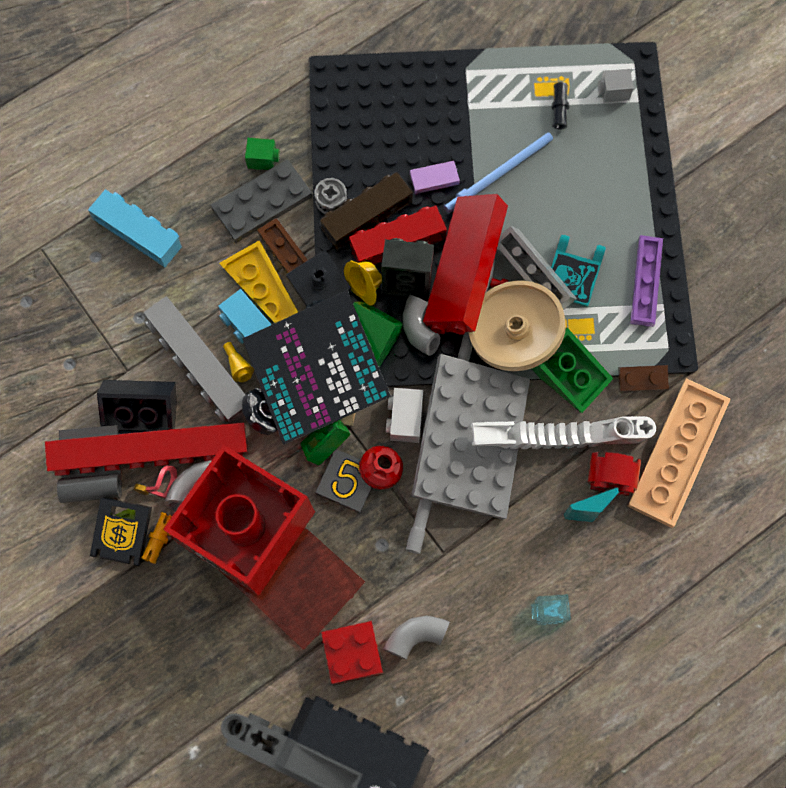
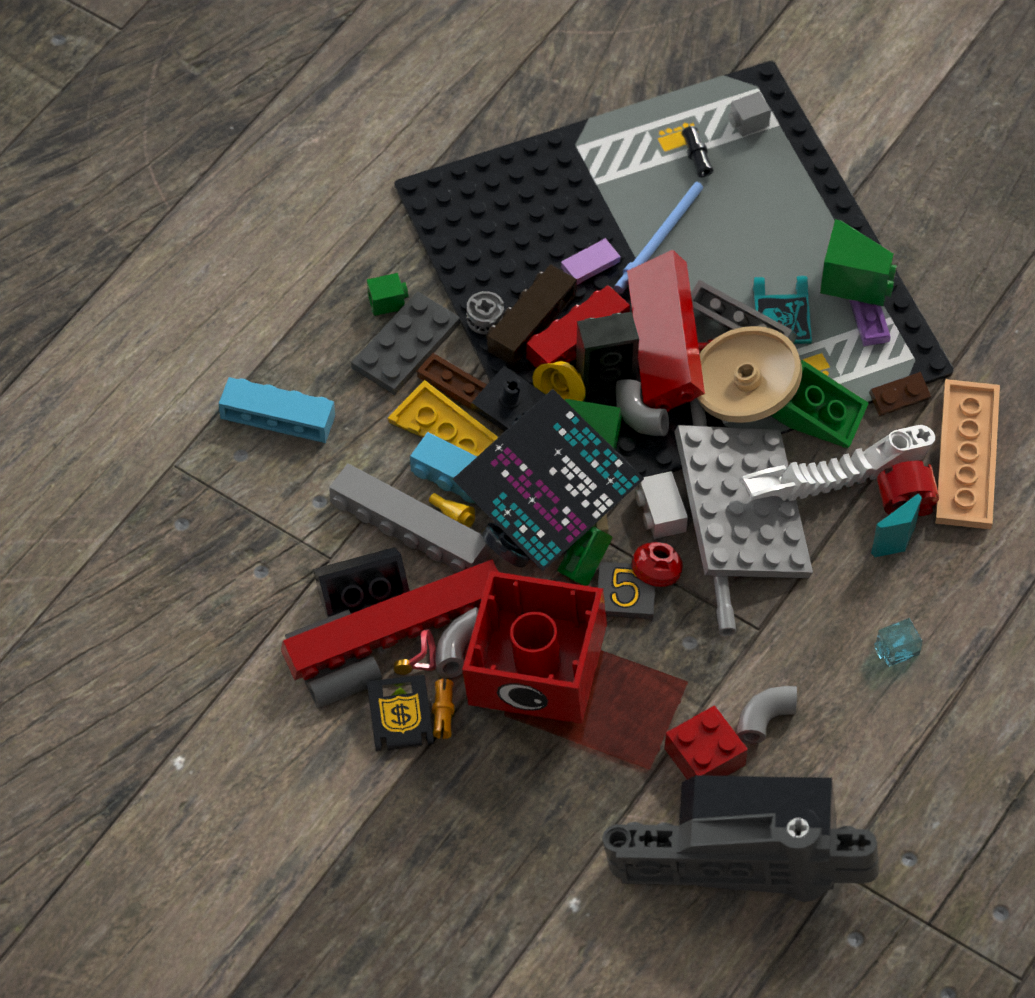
camera: 20 degrees left, 15 degrees down
(648, 255) = (857, 267): none -> green slope

